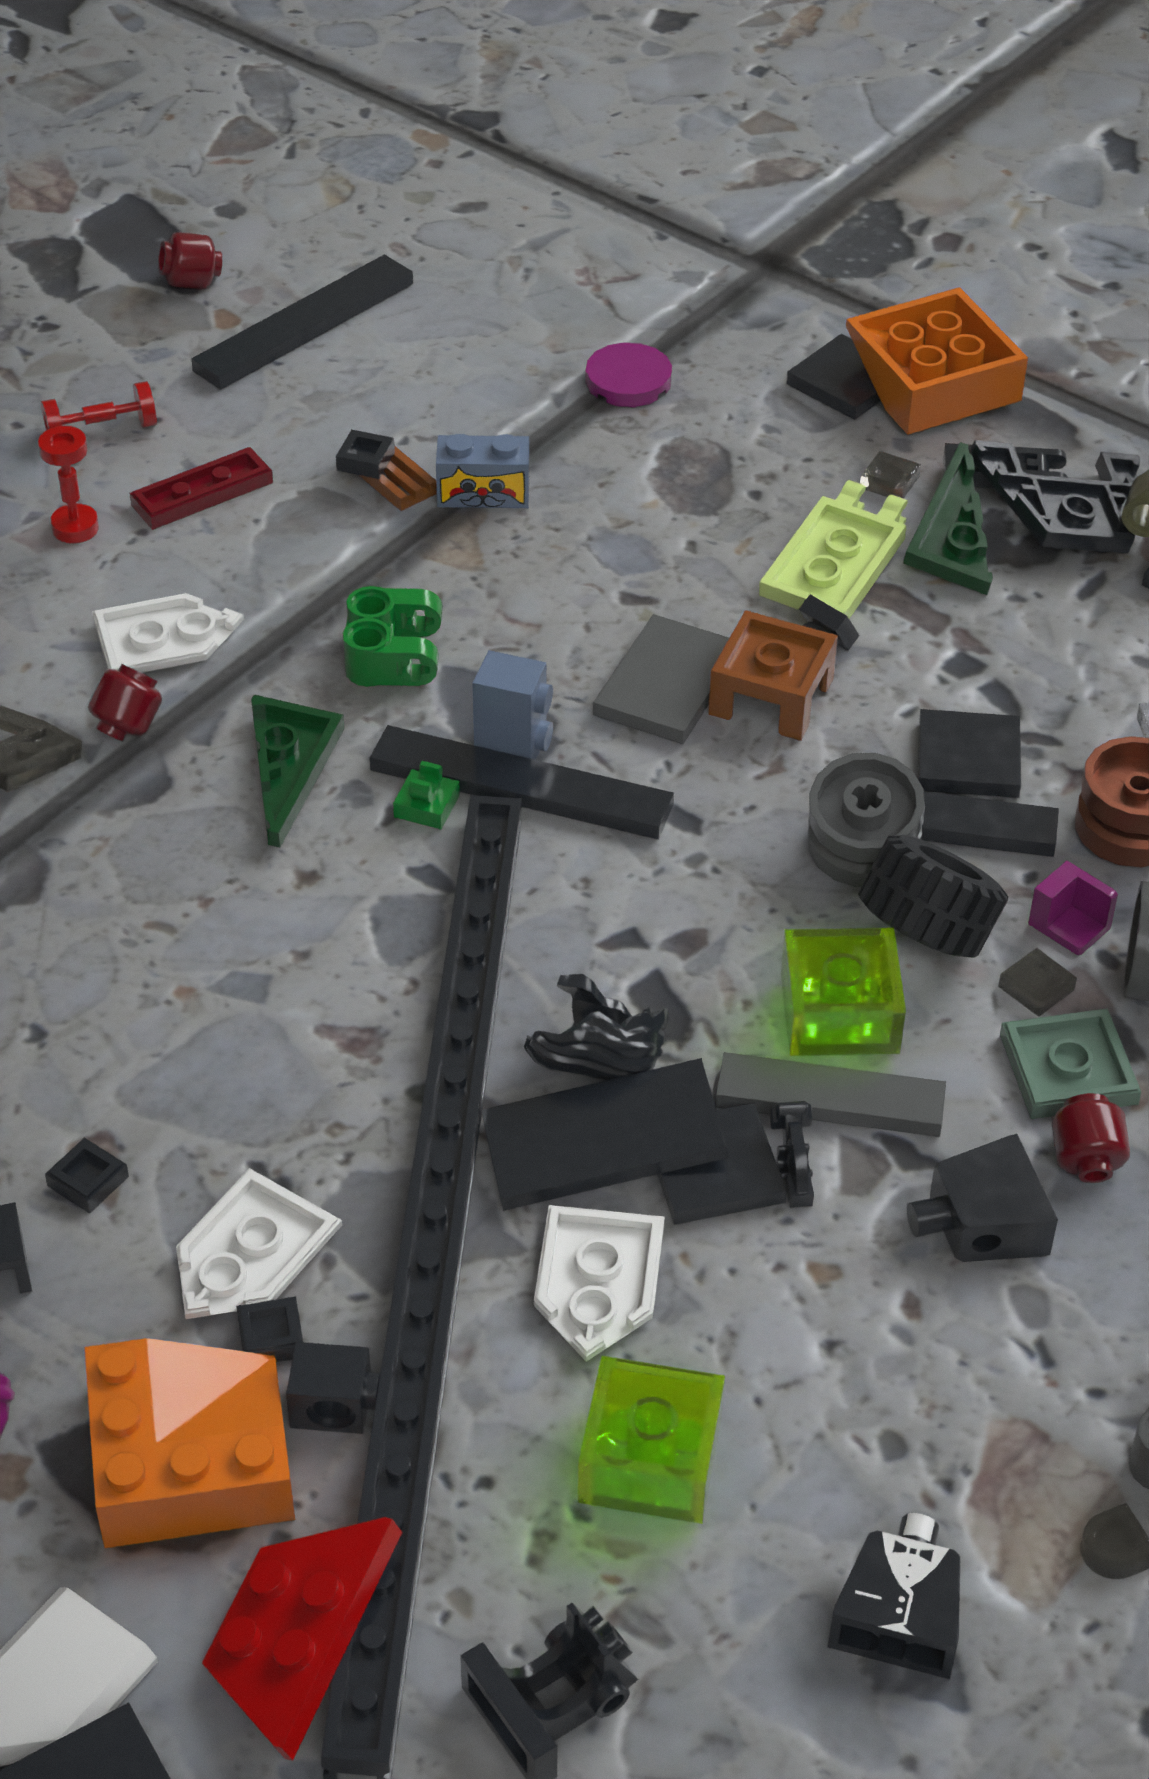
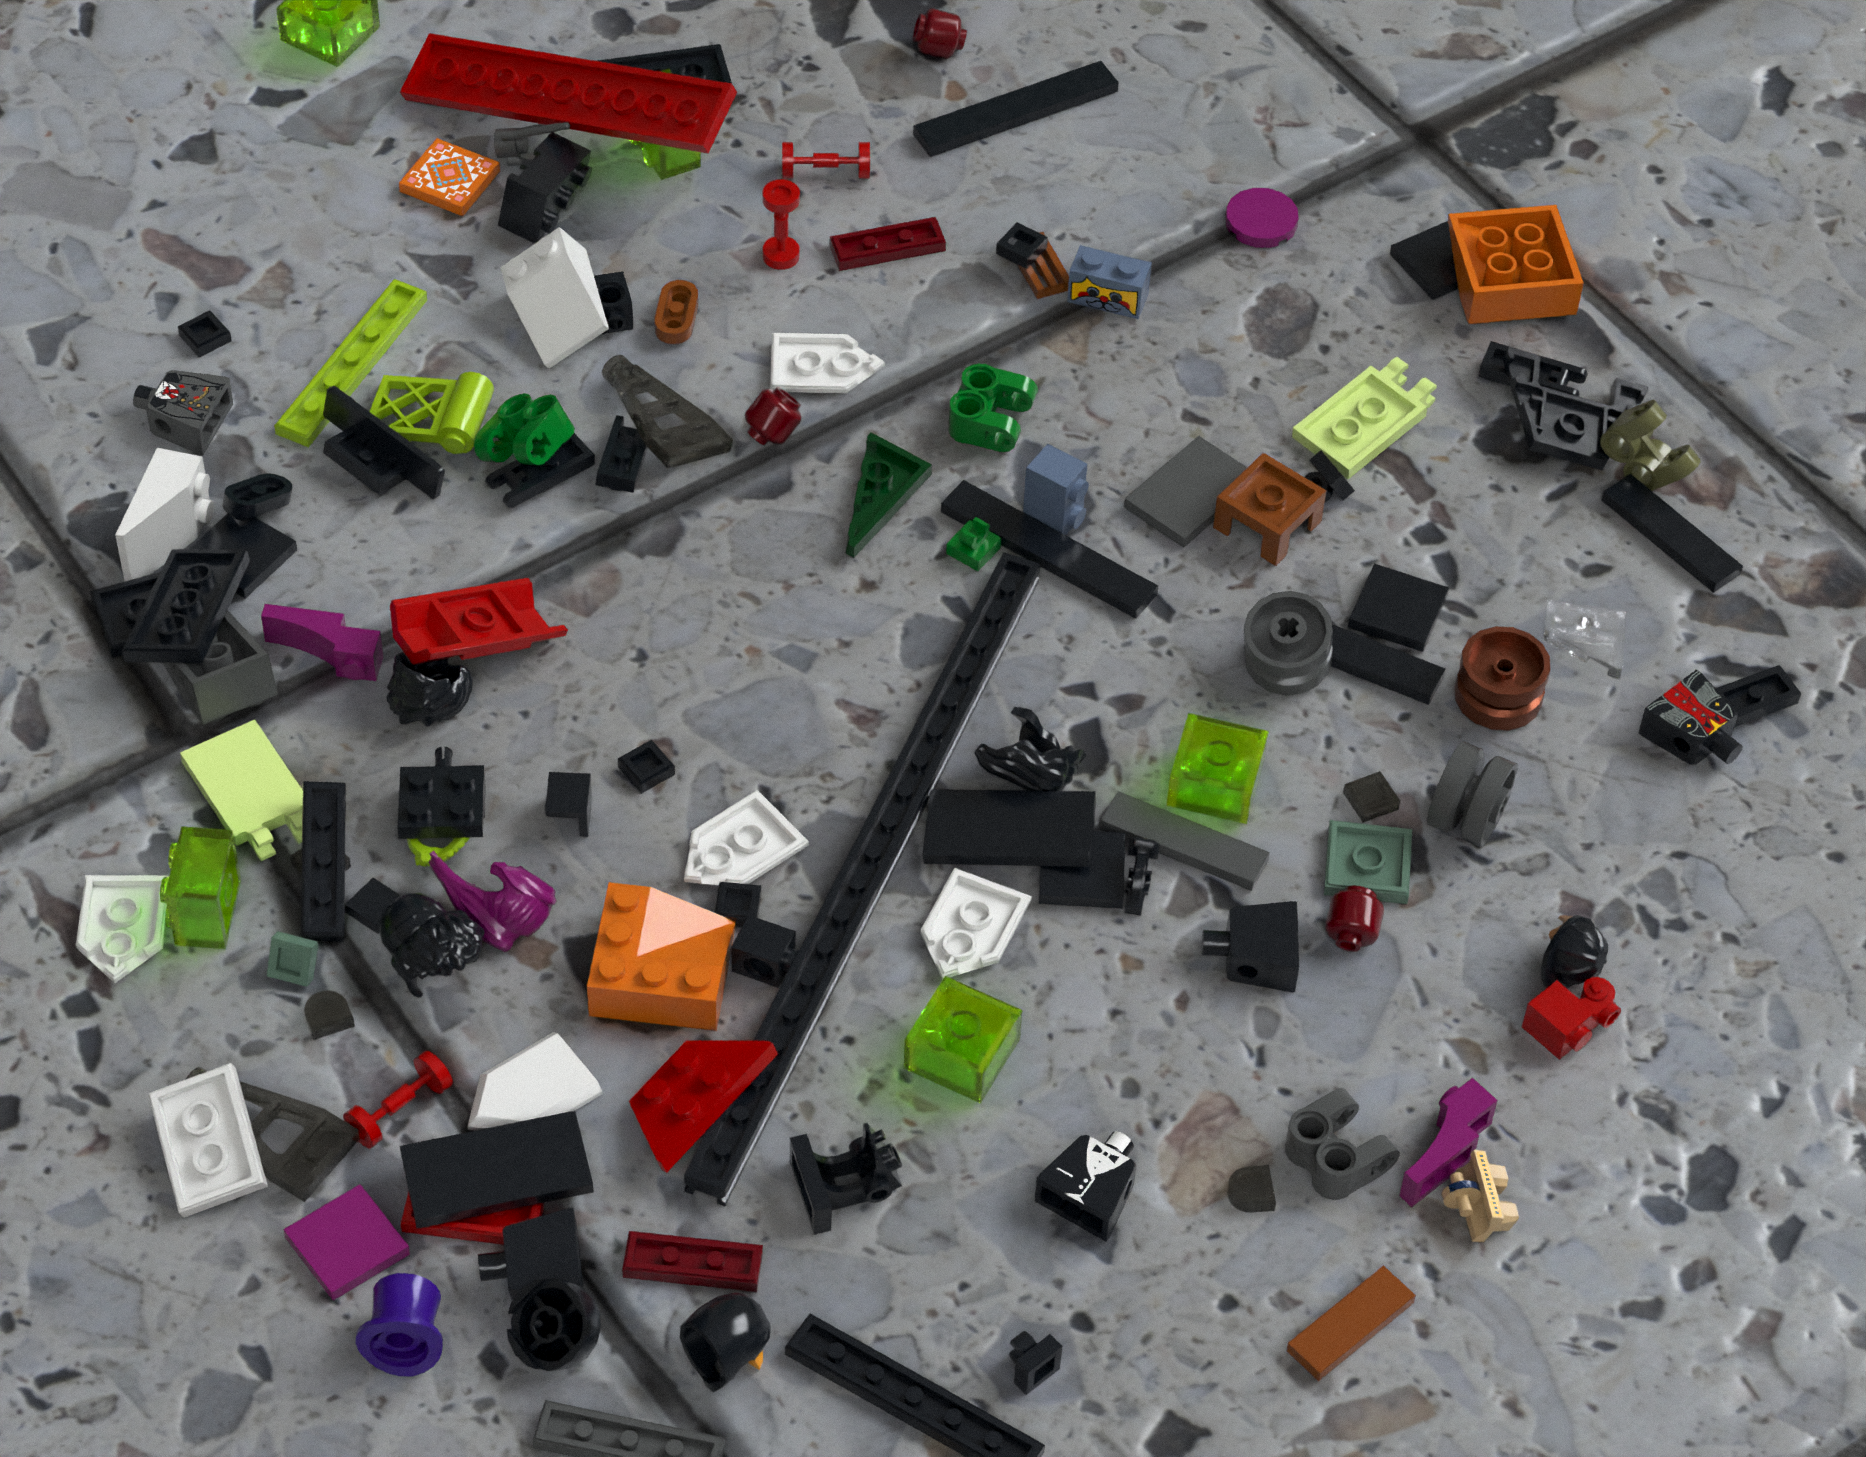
camera: 15 degrees right, 5 degrees up
(890, 475) = (1438, 358): clear smoke tile -> none
(933, 896) = (1309, 714): black tyre -> none
(950, 533) = (1461, 422): dark green wing -> none
(1072, 908) = (1419, 748): magenta panel -> none

